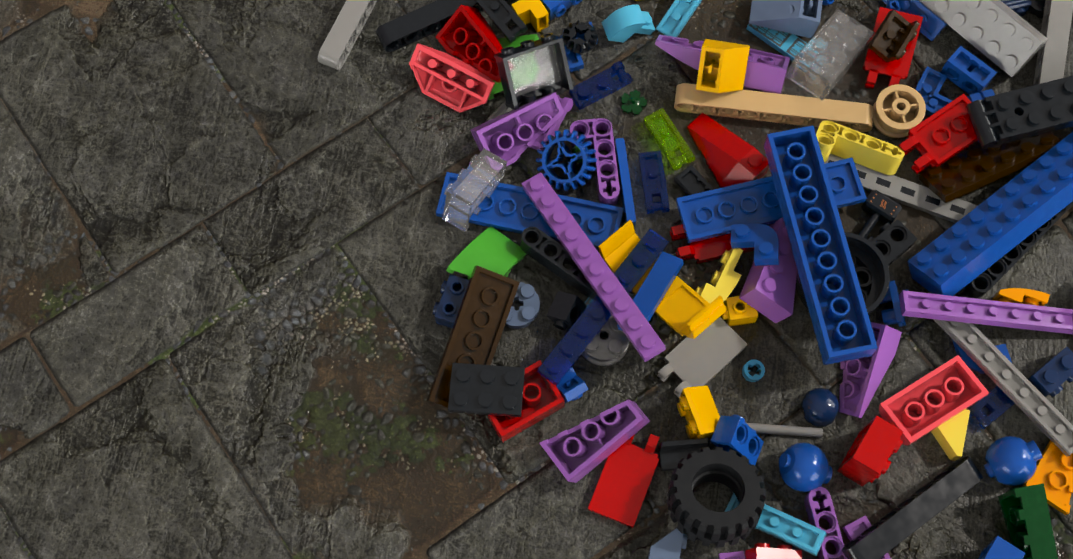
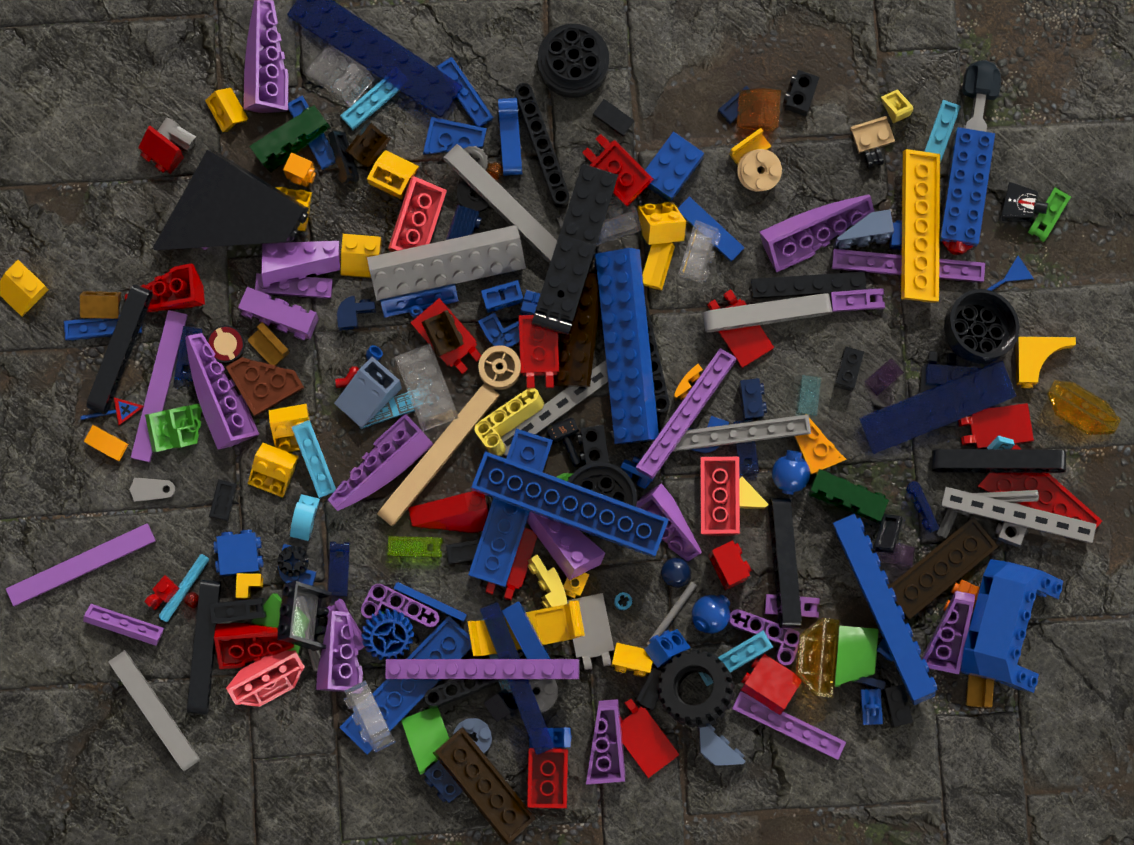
camera: 65 degrees left, 10 degrees up
(486, 389) = (528, 798): black plate -> none
(633, 102) = (367, 553): dark green plant -> none
(653, 181) = (440, 579): clear blue plate -> none
(722, 66) = (390, 476): yellow slope -> none
(759, 237) = (539, 537): blue plate -> none

